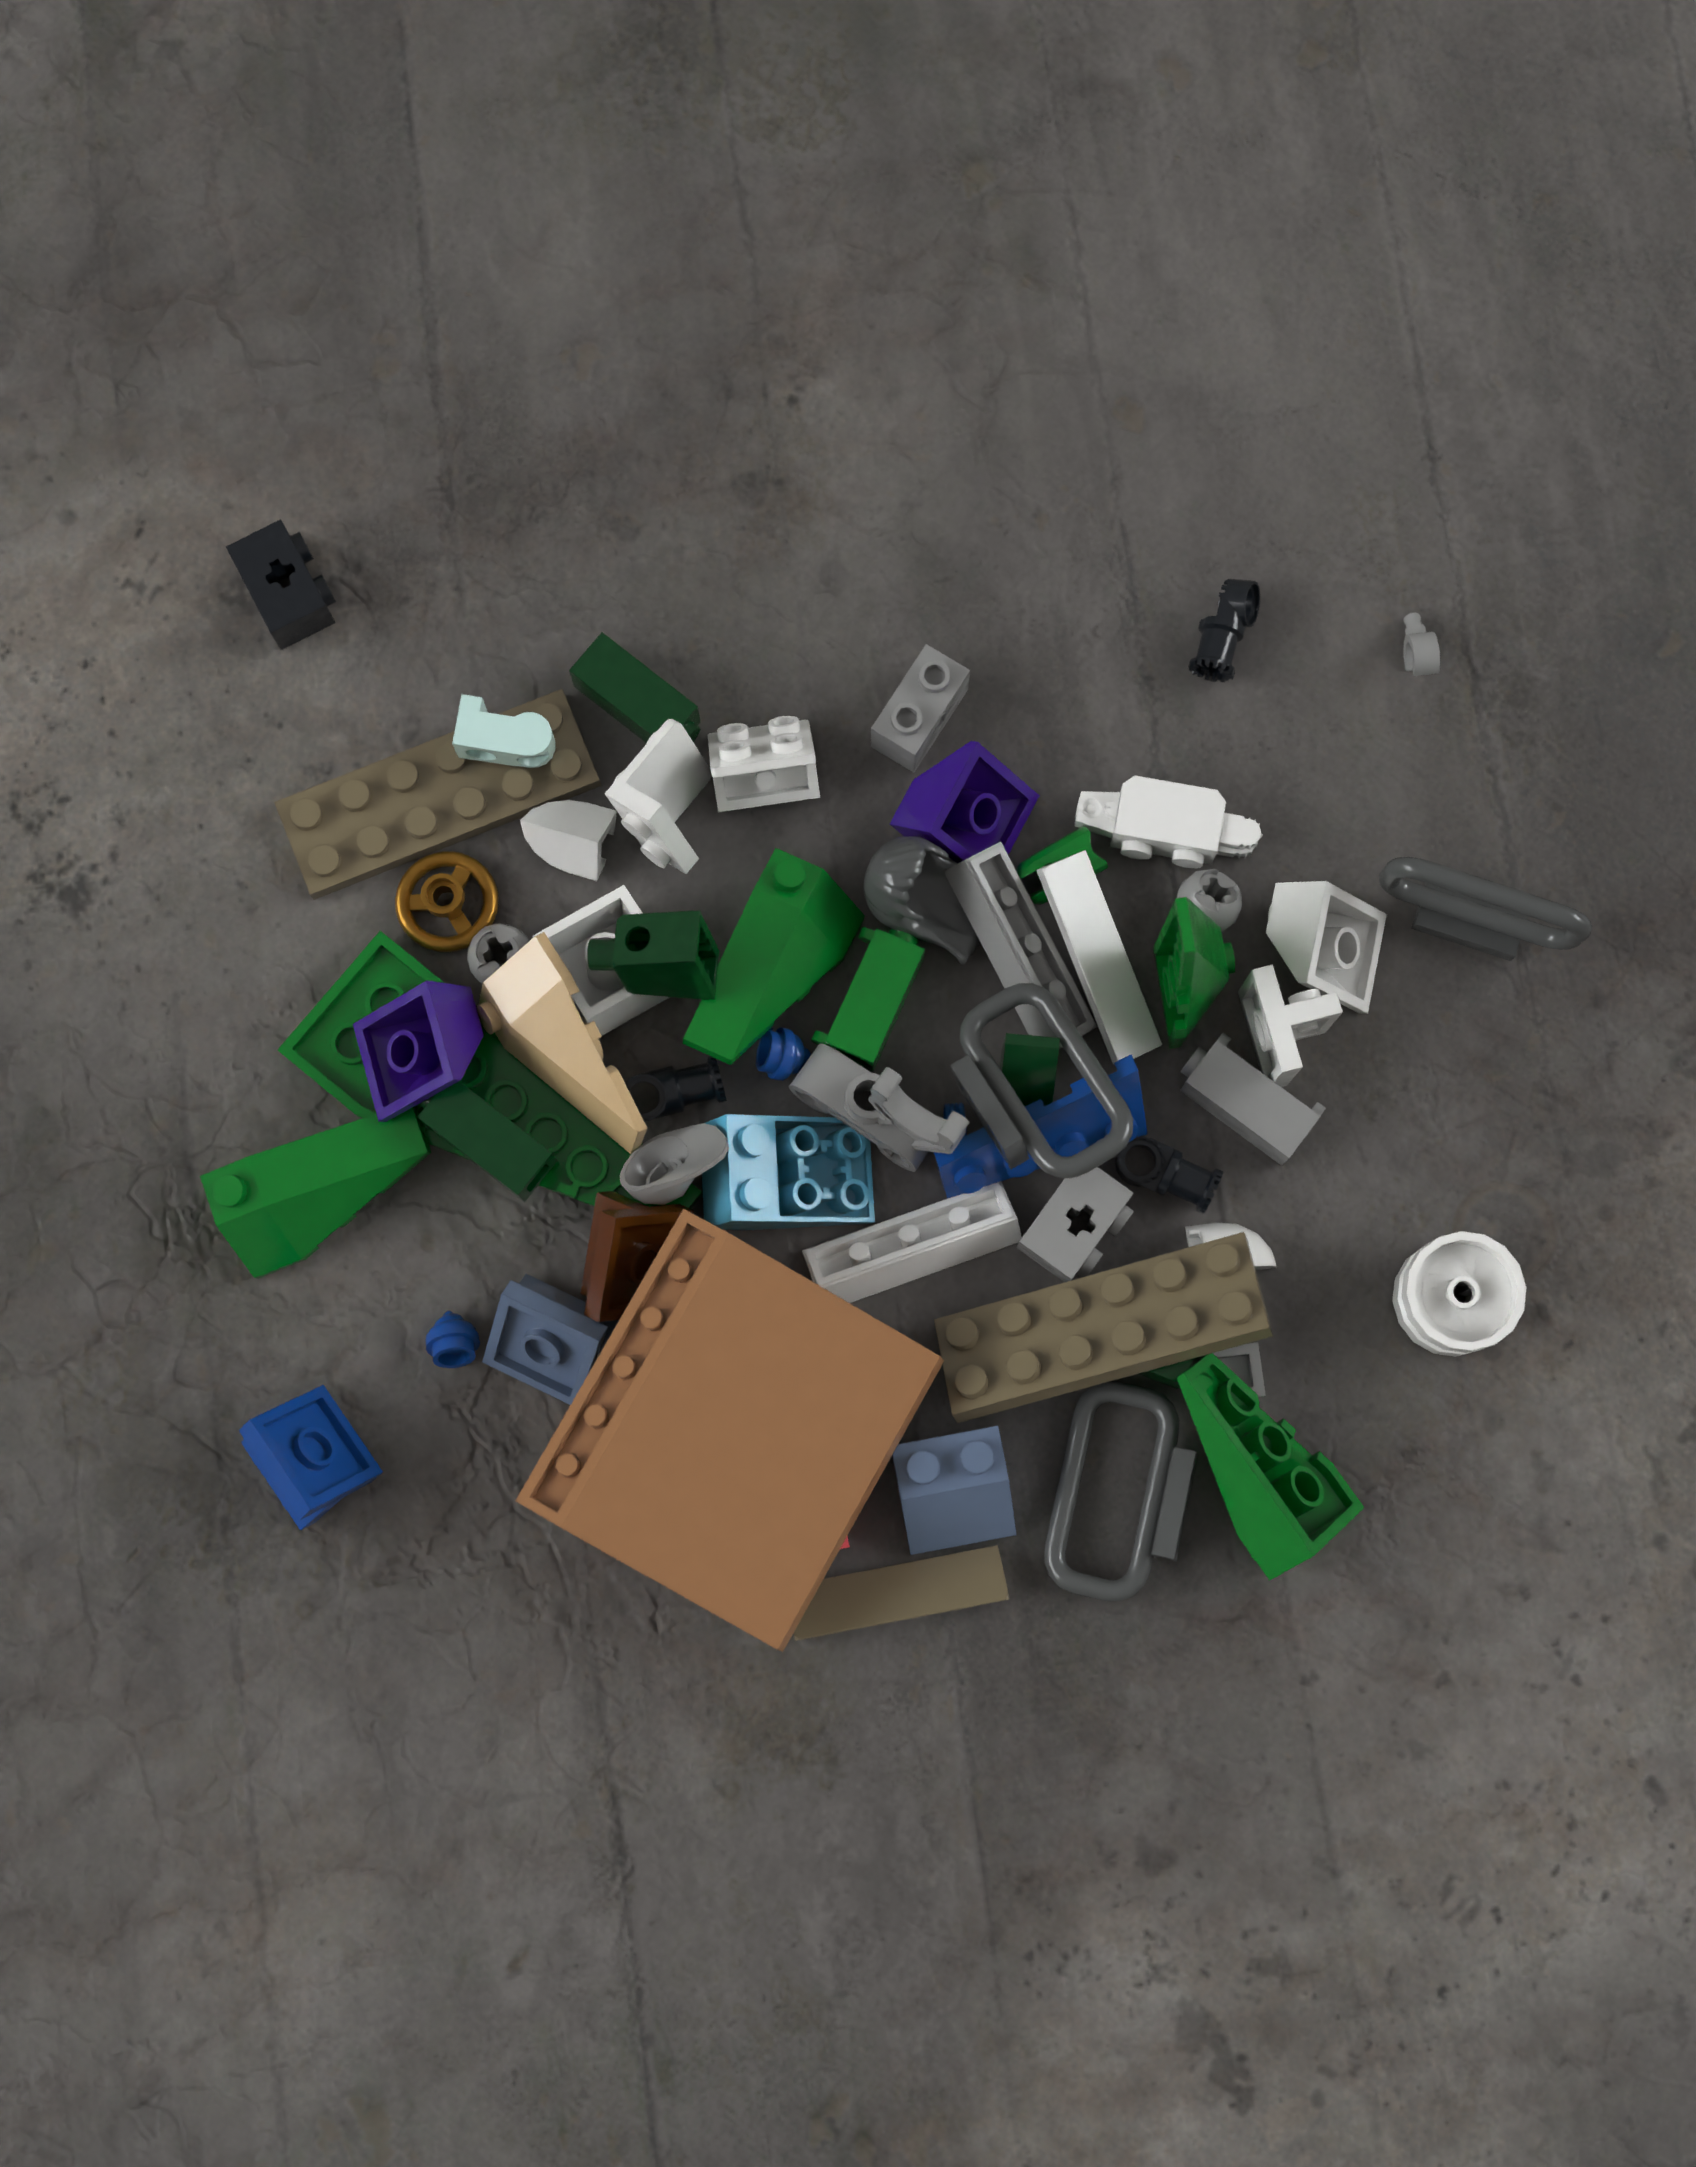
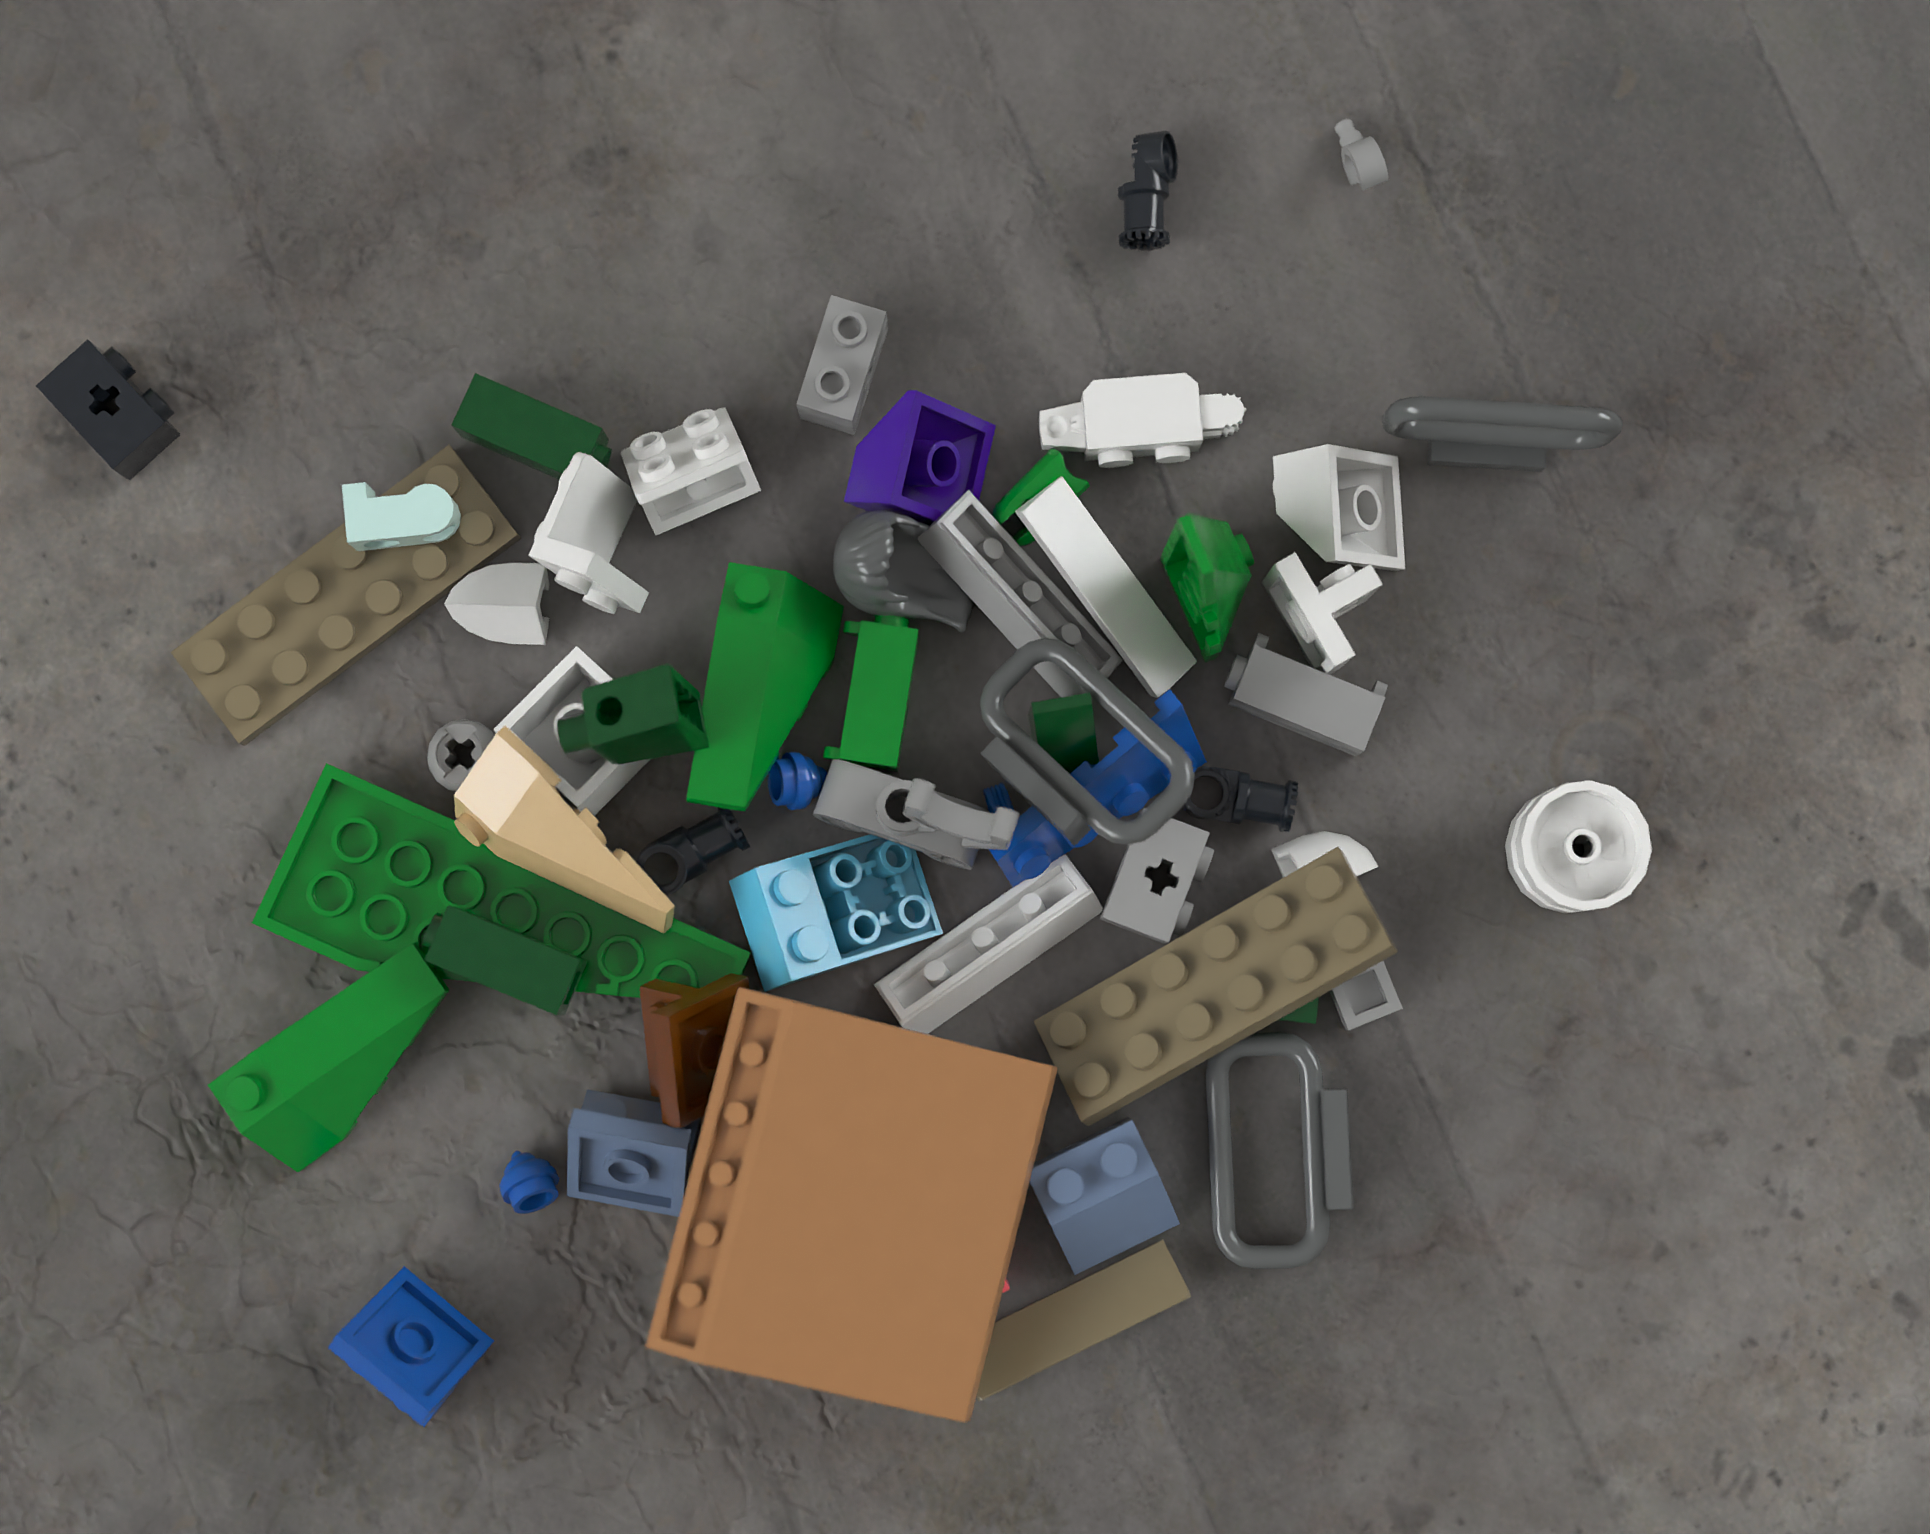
camera: 20 degrees left, 5 degrees up
(418, 1045) = (404, 882): dark purple slope -> none
(435, 886) = (398, 668): pearl gold piece -> none
(670, 1162) = (710, 932): light grey cap -> none
(1214, 895) = (1207, 491): light grey piece -> none
(1273, 1488) = (1438, 1105): green wedge -> none

